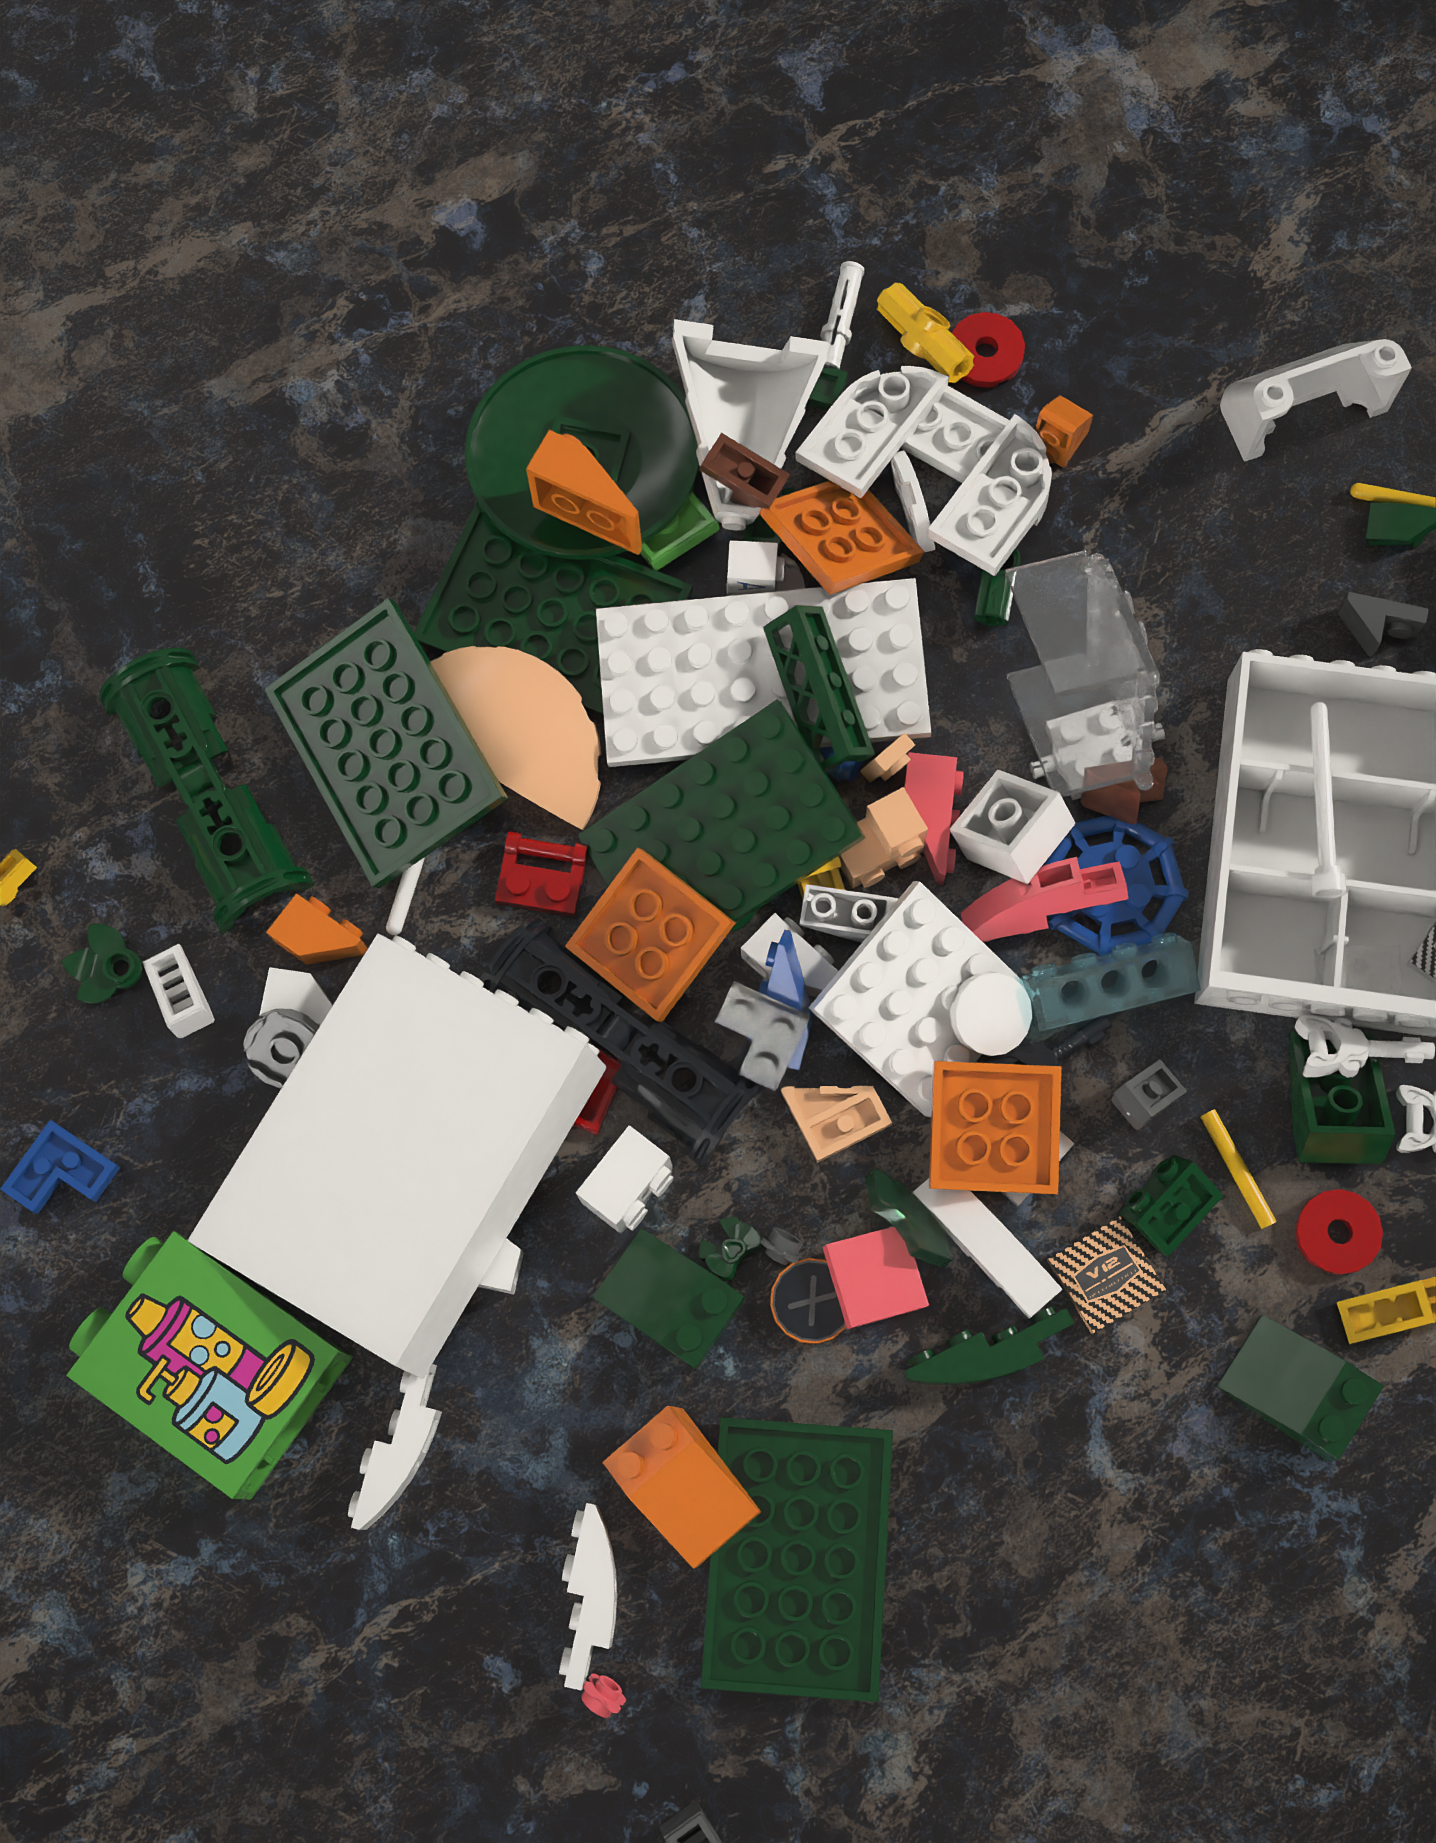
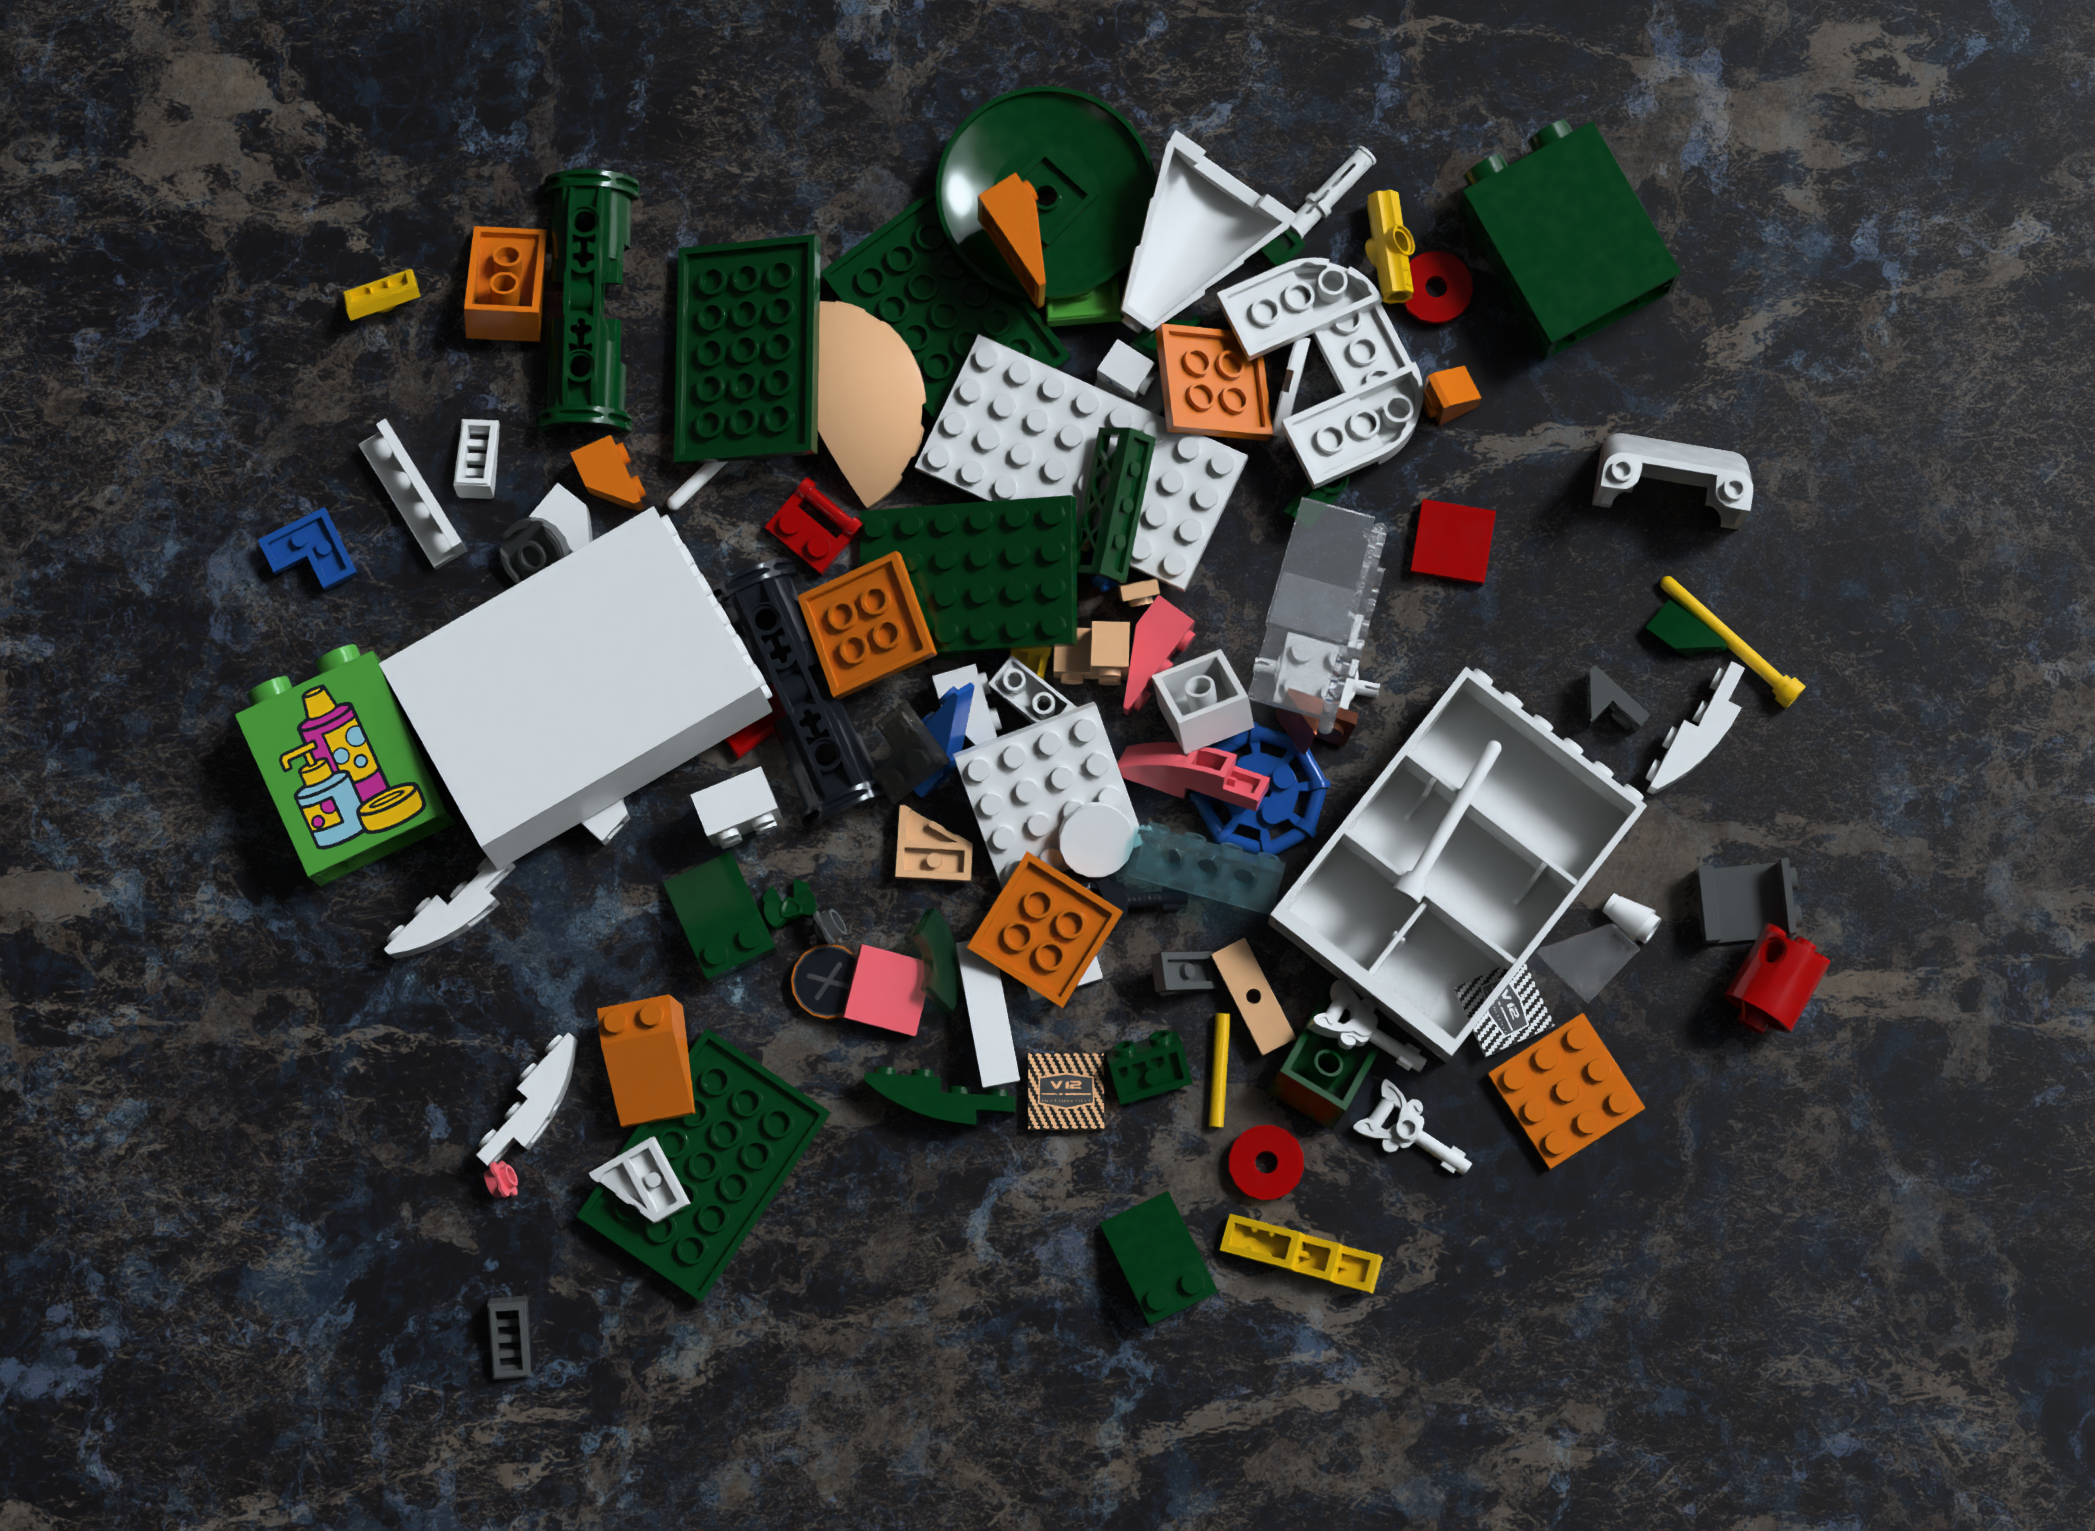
camera: 30 degrees right, 5 degrees up
(98, 965) = (427, 400): dark green plate -> none
(115, 812) = (506, 284): none -> orange slope
(133, 1061) = (412, 496): none -> white fence
(750, 476) = (1158, 291): copper slope -> none
(750, 1611) = (644, 1180): none -> white wing
(1079, 236) = (1566, 236): none -> dark green brick
(1146, 558) = (1453, 542): none -> red tile
(1251, 1091) = (1242, 975): none -> light nougat tile

